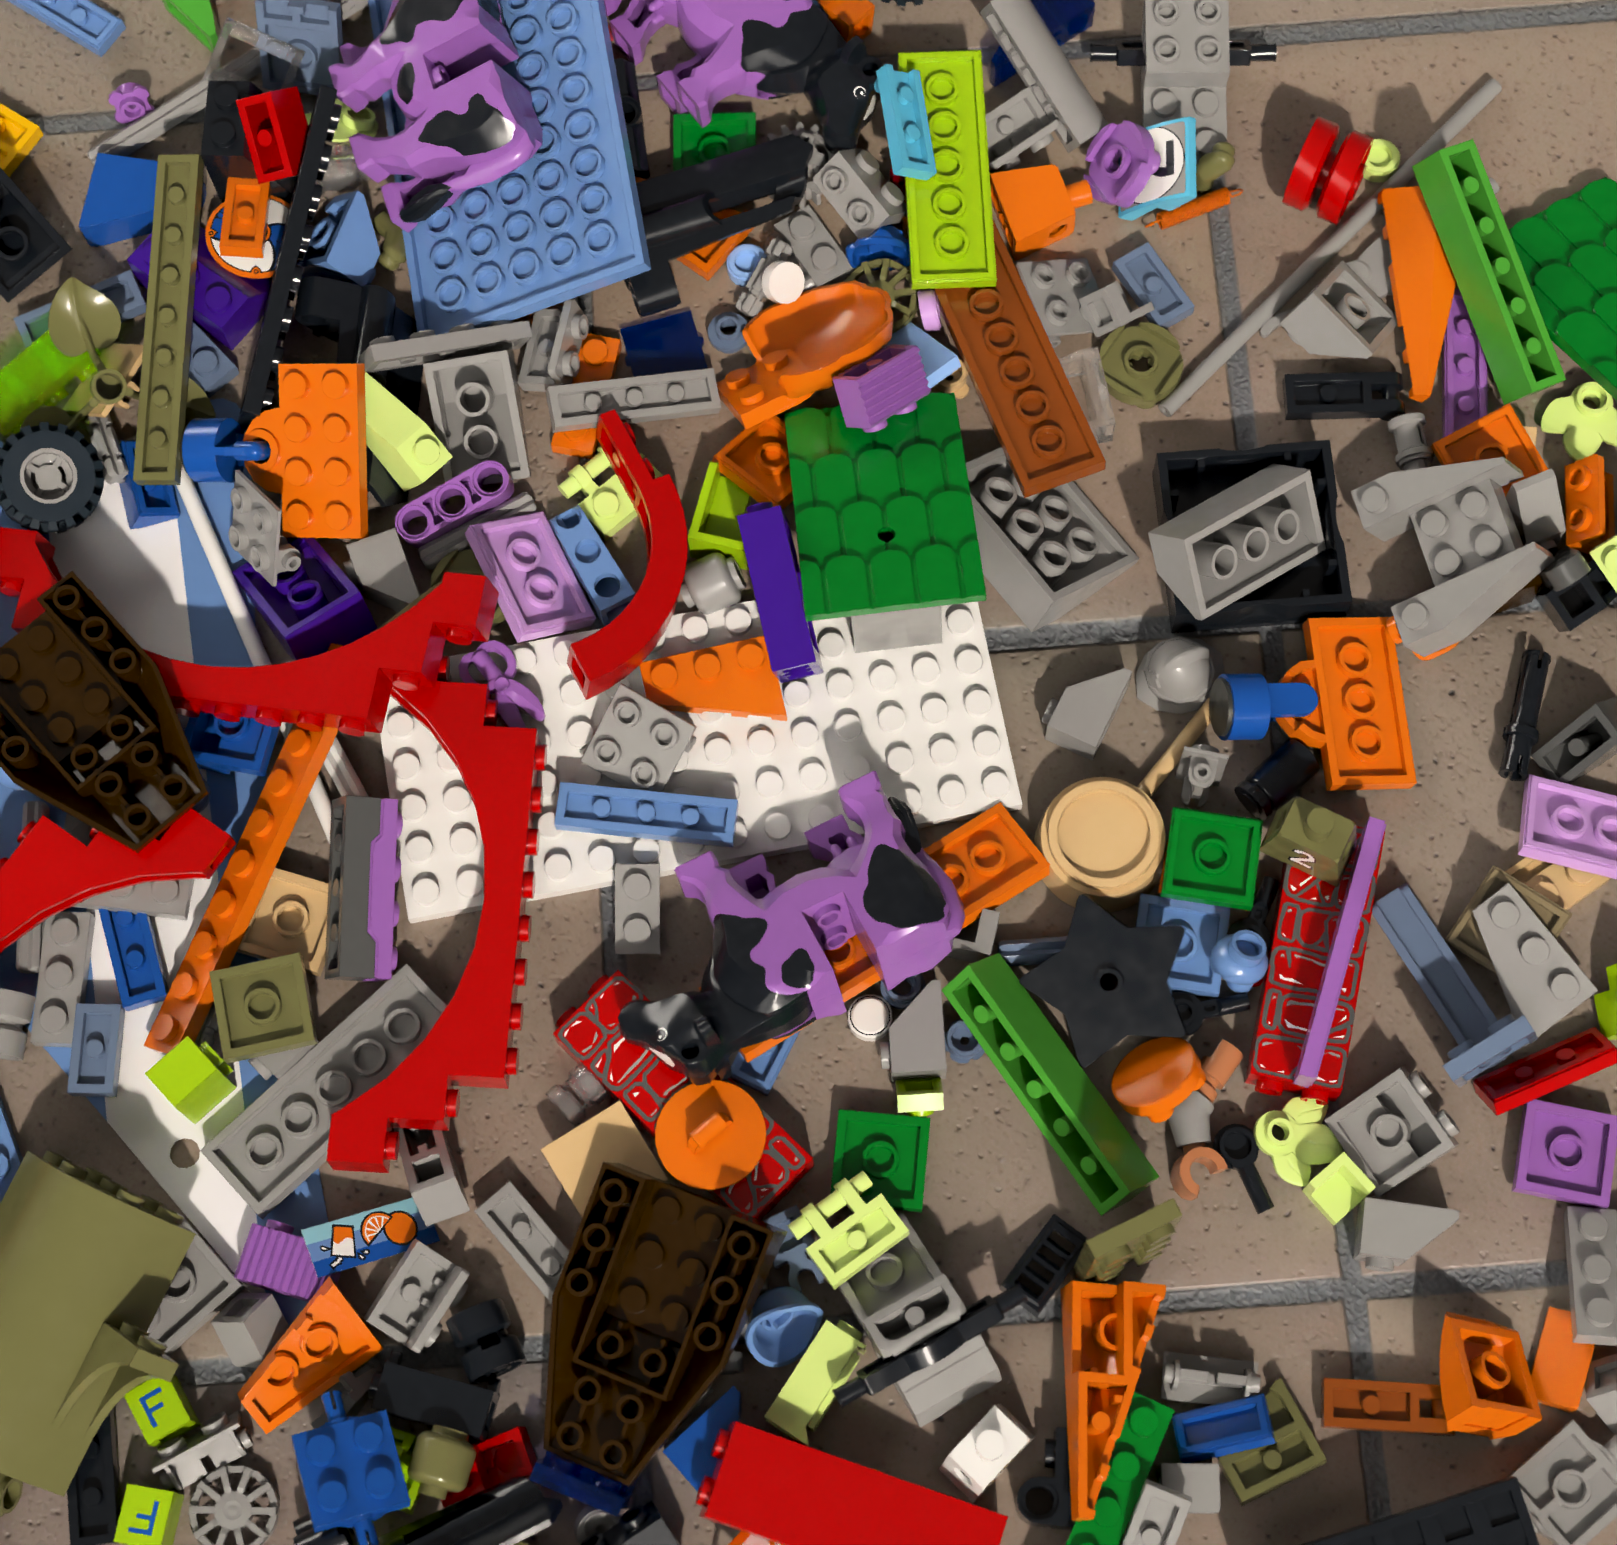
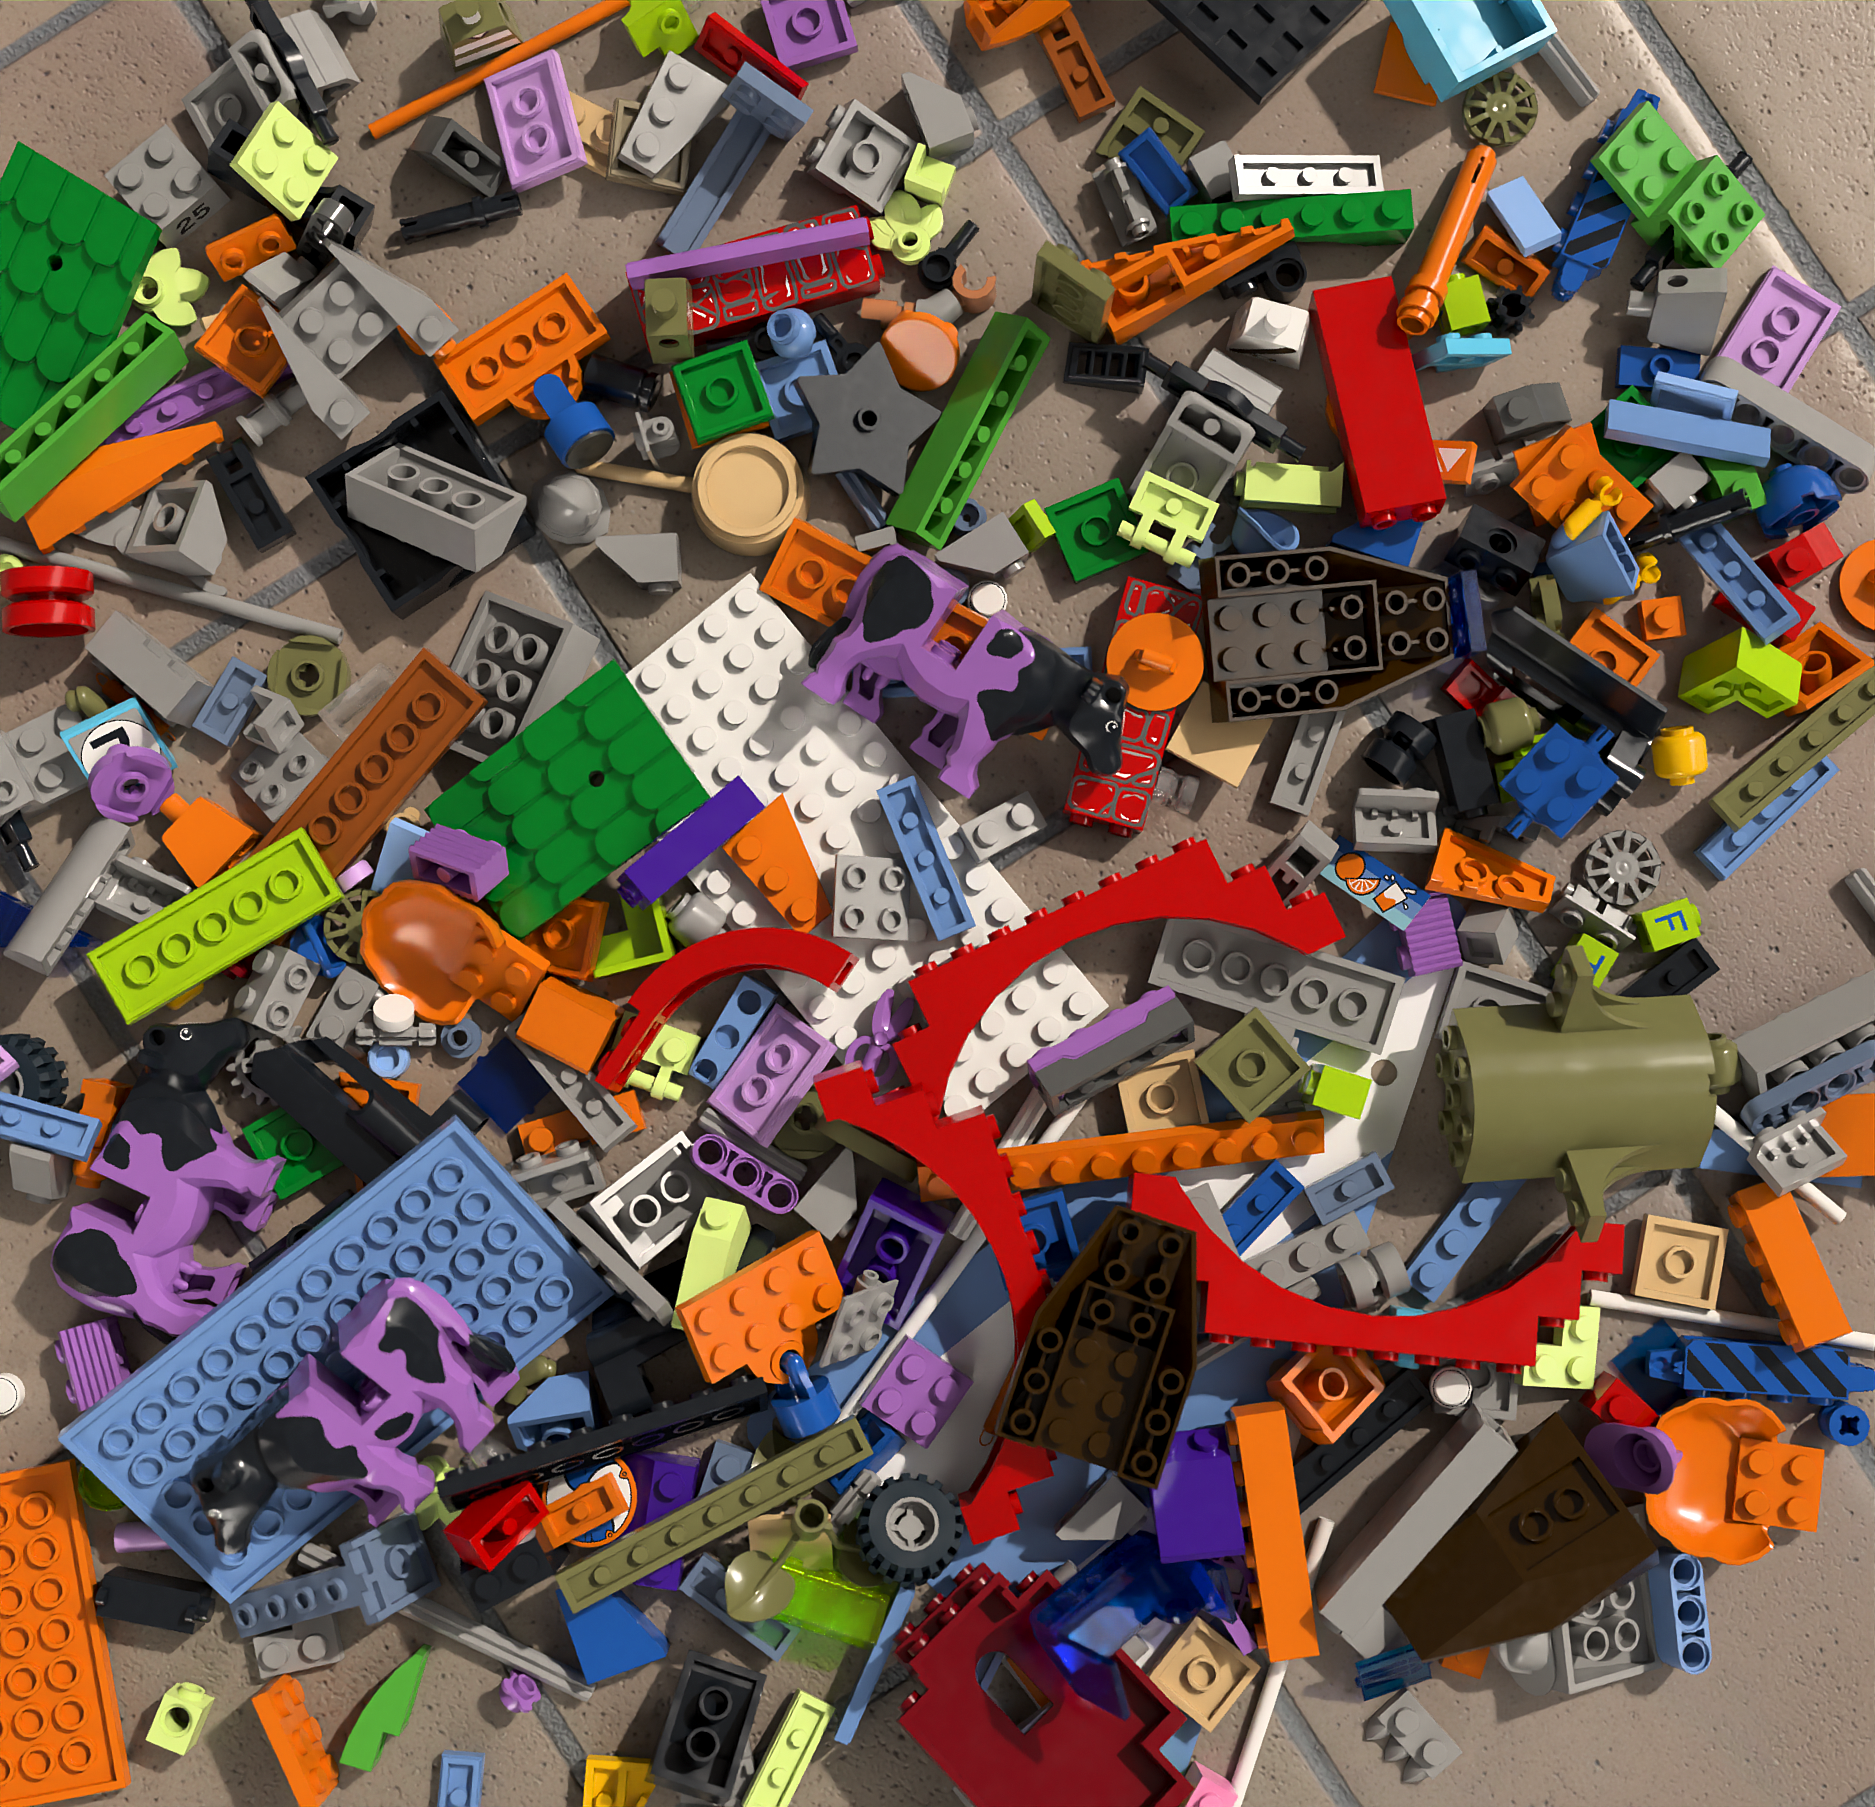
camera: 120 degrees left, 15 degrees up
(167, 556) = (916, 1391): none -> medium lavender plate
(259, 40) = (453, 1592): clear tile -> none
(684, 425) = (569, 1023): none -> orange slope
(906, 122) = (195, 976): medium azure hinge -> none
(1218, 230) = (149, 670): none -> light grey wedge

